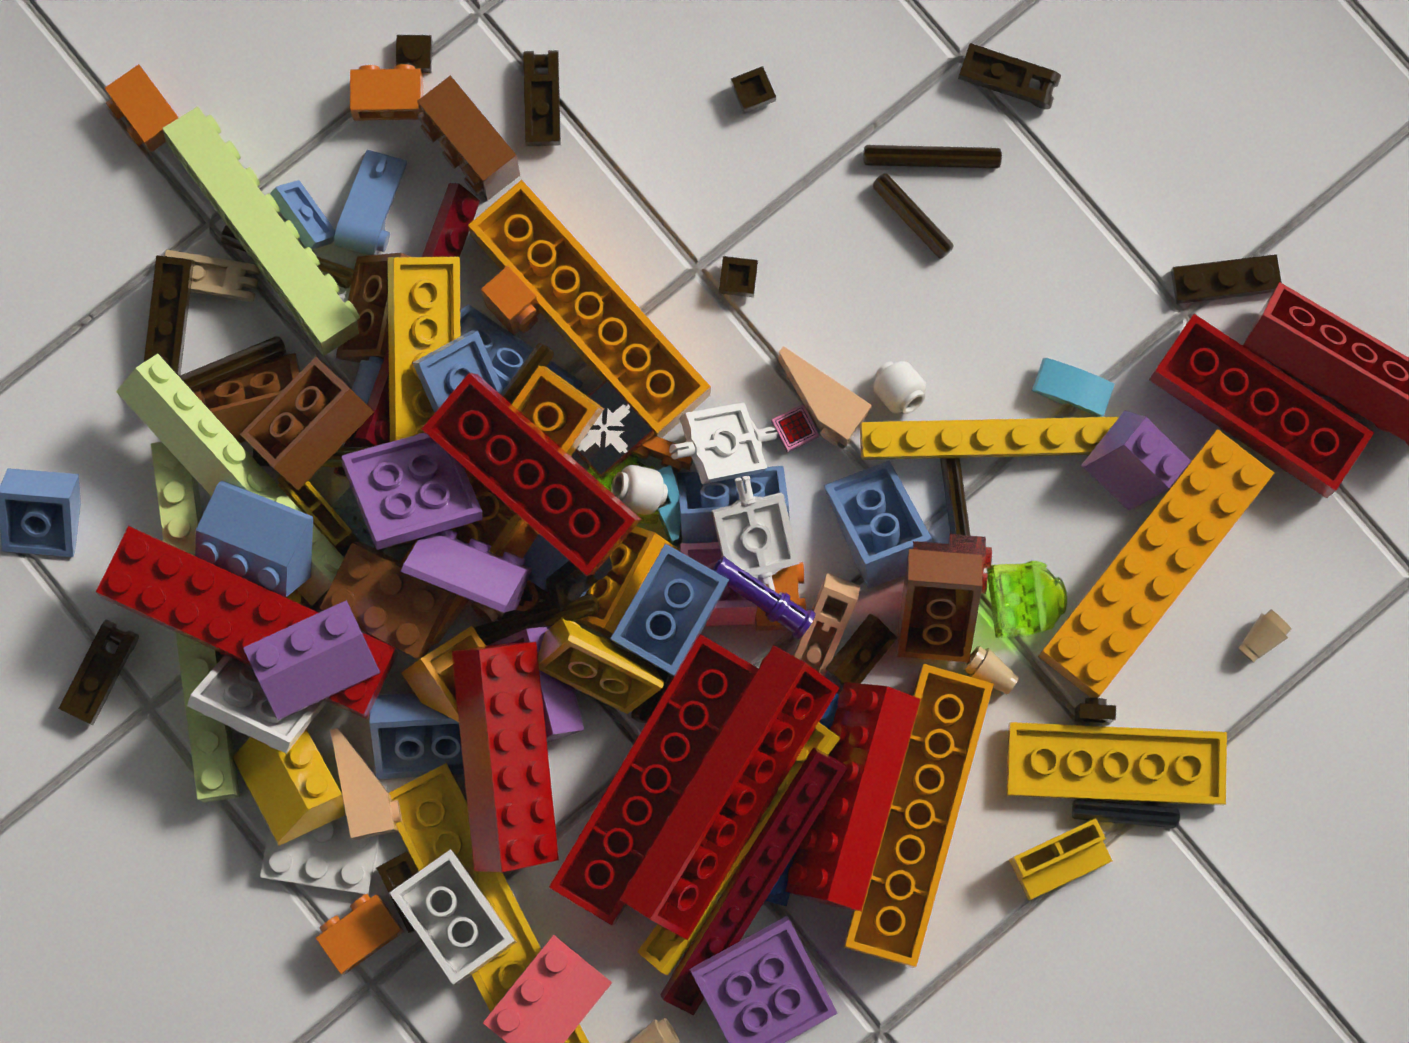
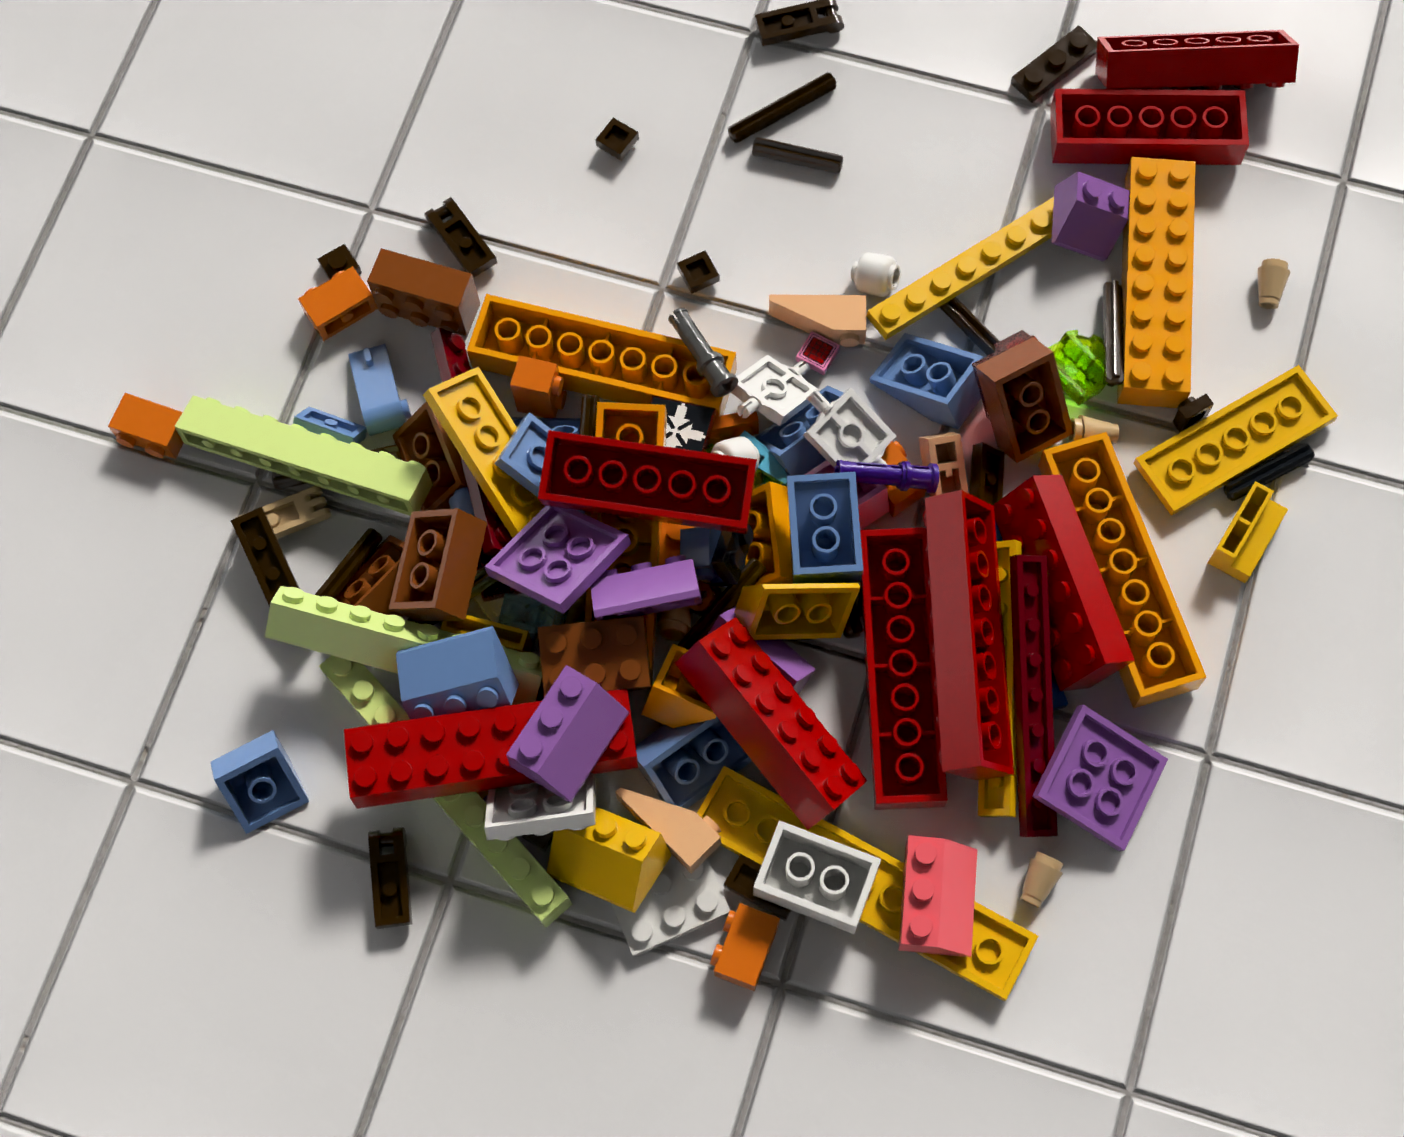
camera: 25 degrees left, 10 degrees down
(675, 383) = (709, 363): none -> dark grey pin
(1073, 386) = (1002, 197): medium azure slope -> none
(1076, 589) = (1113, 333): none -> dark brown axle

